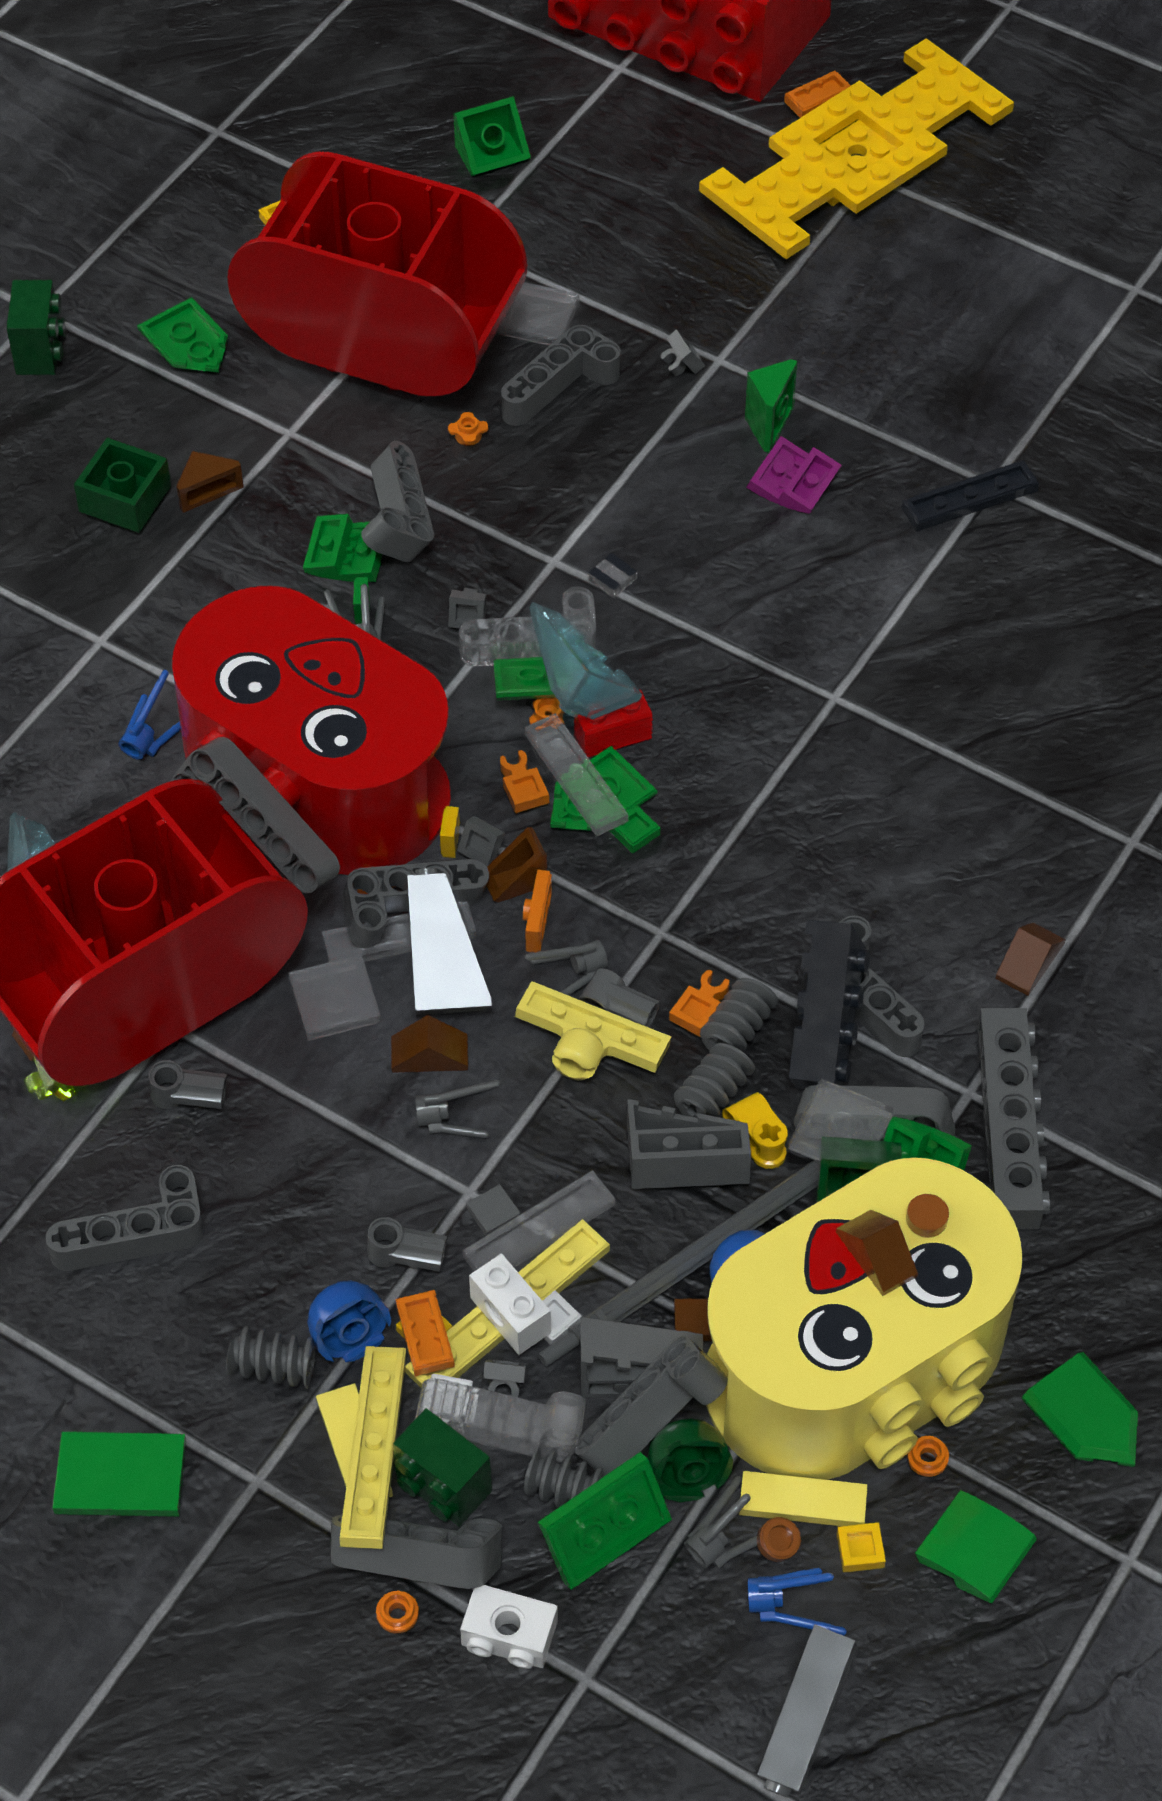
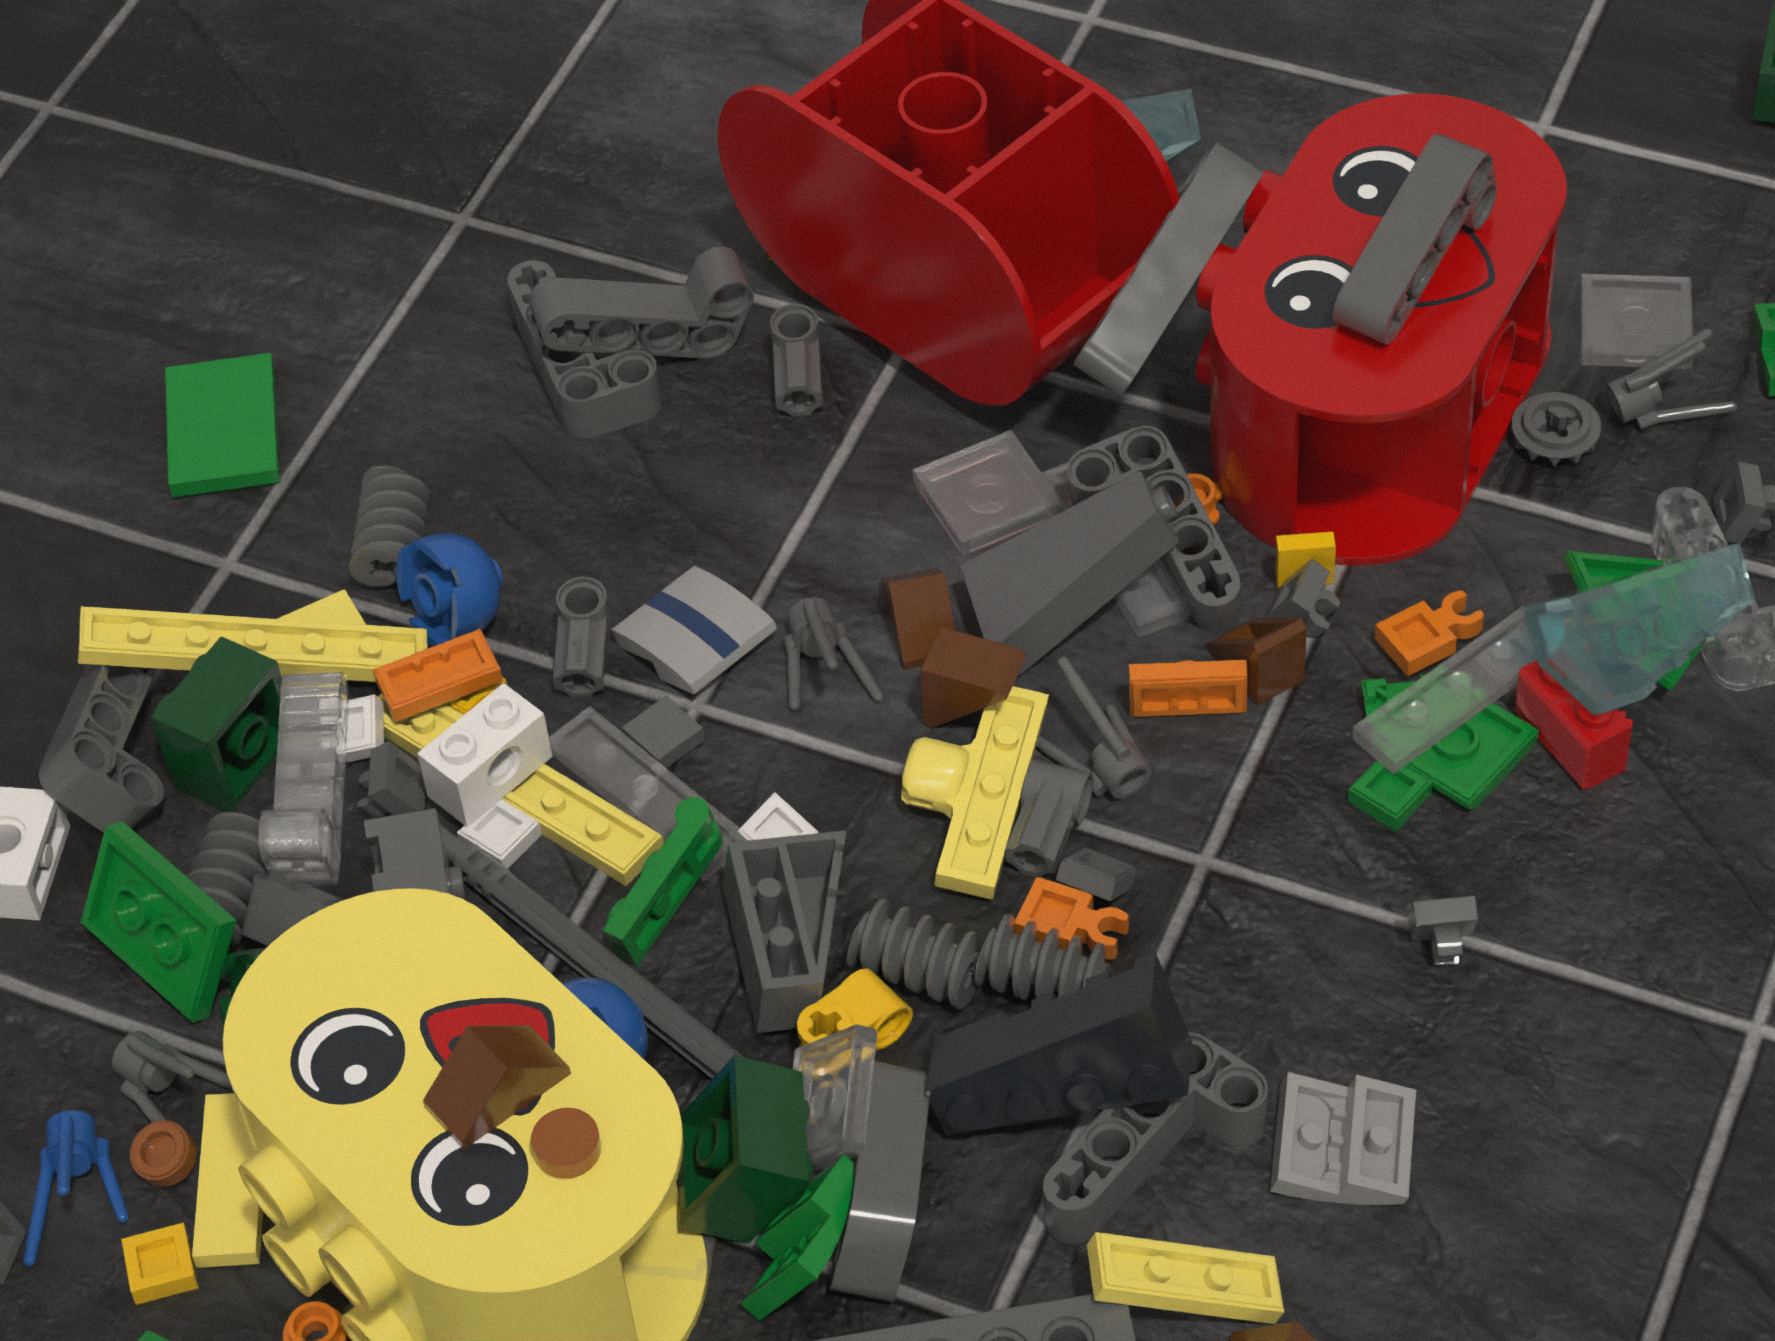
camera: 85 degrees right, 5 degrees down
(128, 1158) = (655, 318): none -> dark grey beam
(331, 657) = (1442, 192): none -> dark grey beam
(357, 598) = (1710, 378): green tile -> none
(396, 1600) = (33, 733): orange plate -> none
(412, 1179) = (694, 629): none -> light grey slope
(514, 1019) = (966, 675): none -> reddish brown slope
(598, 1153) = (774, 820): none -> white tile
(632, 1212) = (664, 882): none -> green plate
(670, 983) = (1096, 874): none -> dark grey tile
(747, 818) = (1444, 924): none -> dark grey tile
(881, 896) = (1343, 1141): none -> light grey slope
(972, 981) = (1184, 1278): none -> light yellow tile

